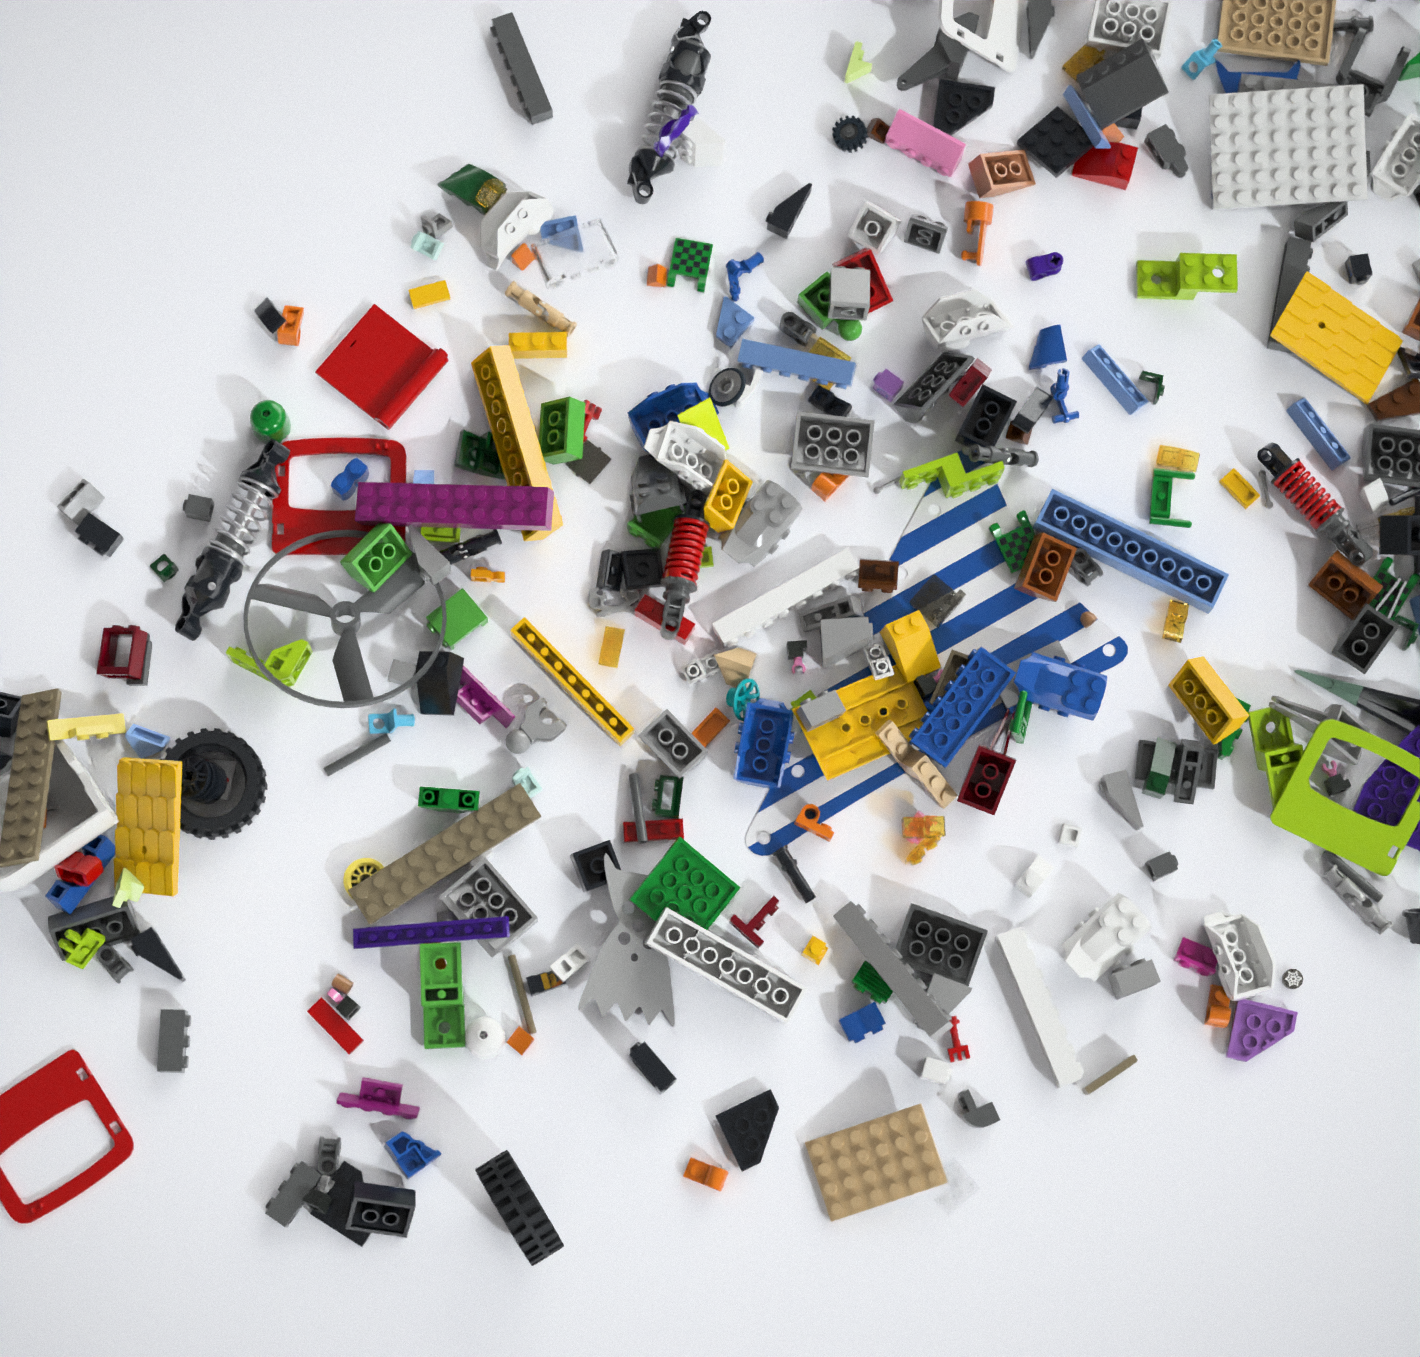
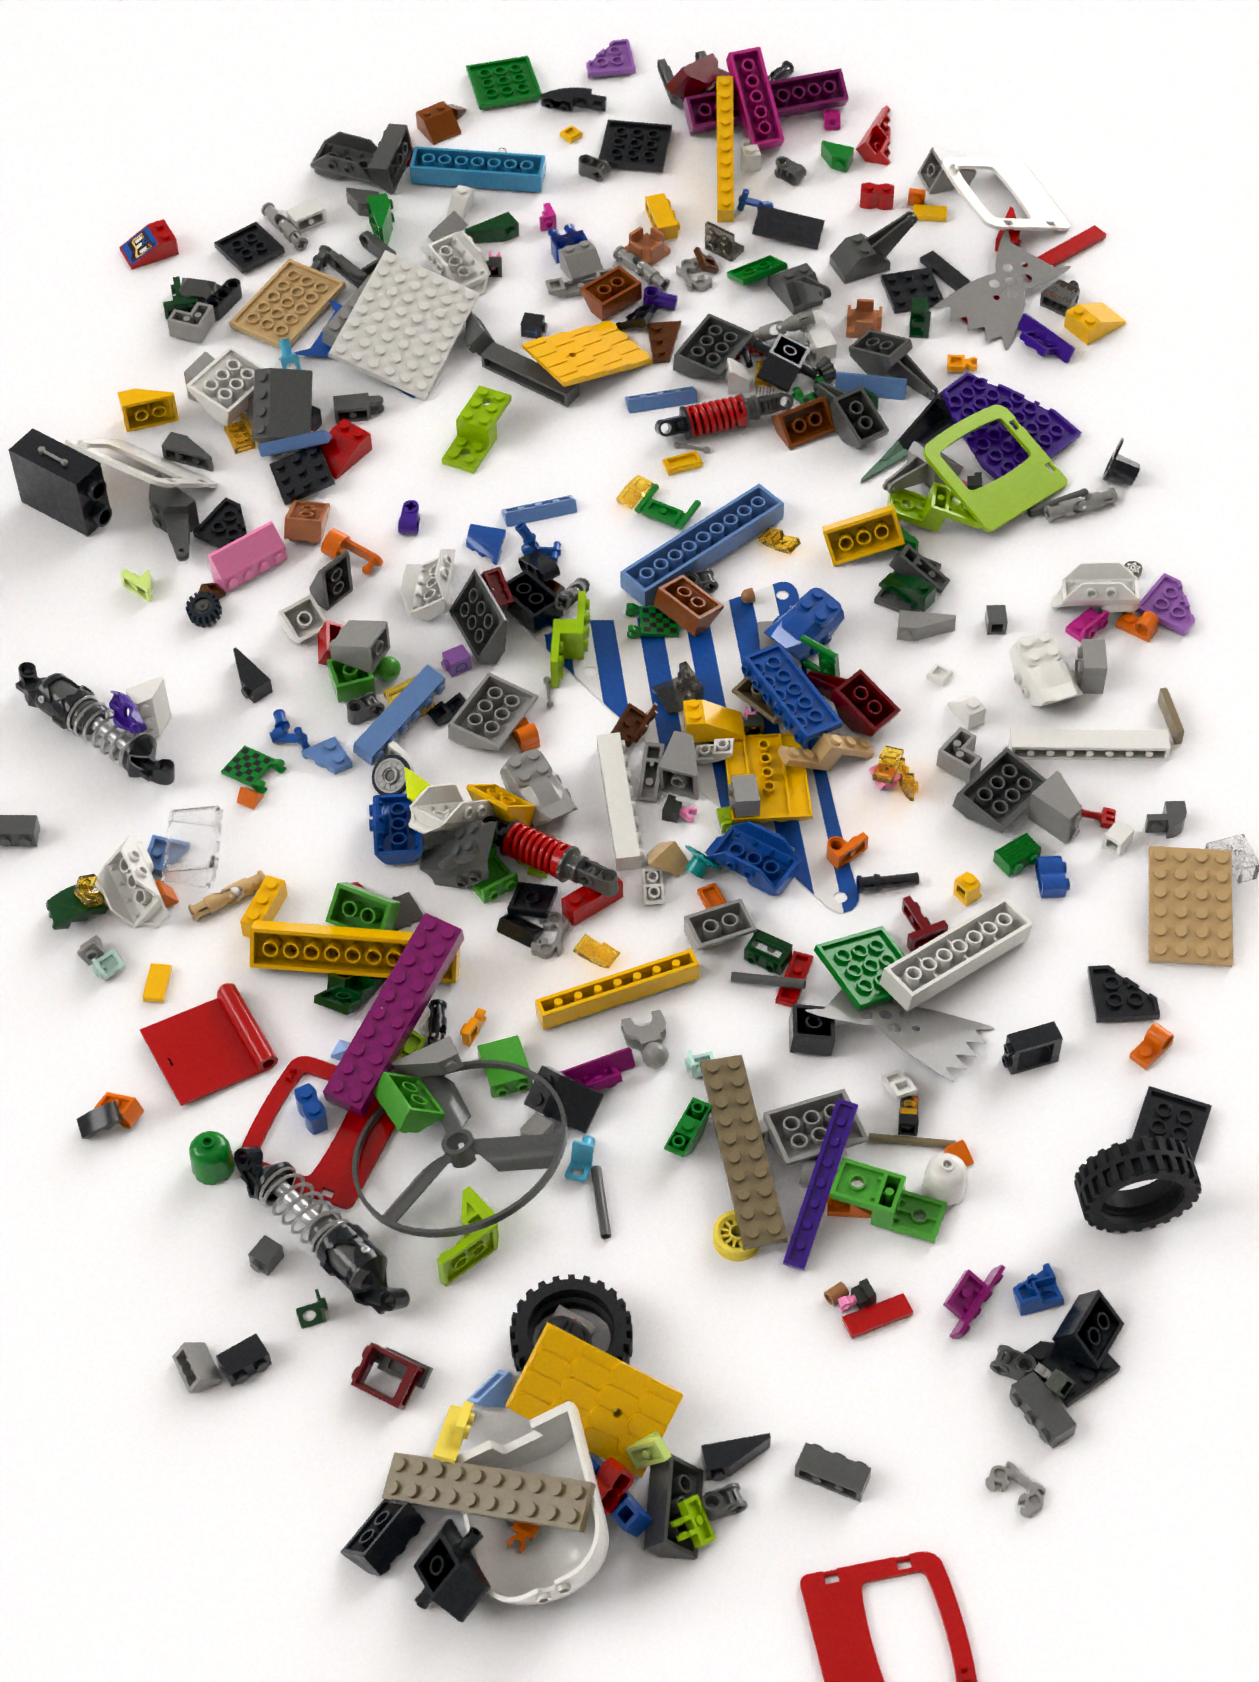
camera: 60 degrees left, 25 degrees down
(222, 1178) = (1033, 1501): none -> light grey helmet
(628, 1217) = (1173, 1117): none -> black plate
(893, 971) = (1015, 824): light grey brick -> none
(968, 884) = (958, 756): none -> light grey brick
(1158, 378) = (561, 480): dark green bracket -> none

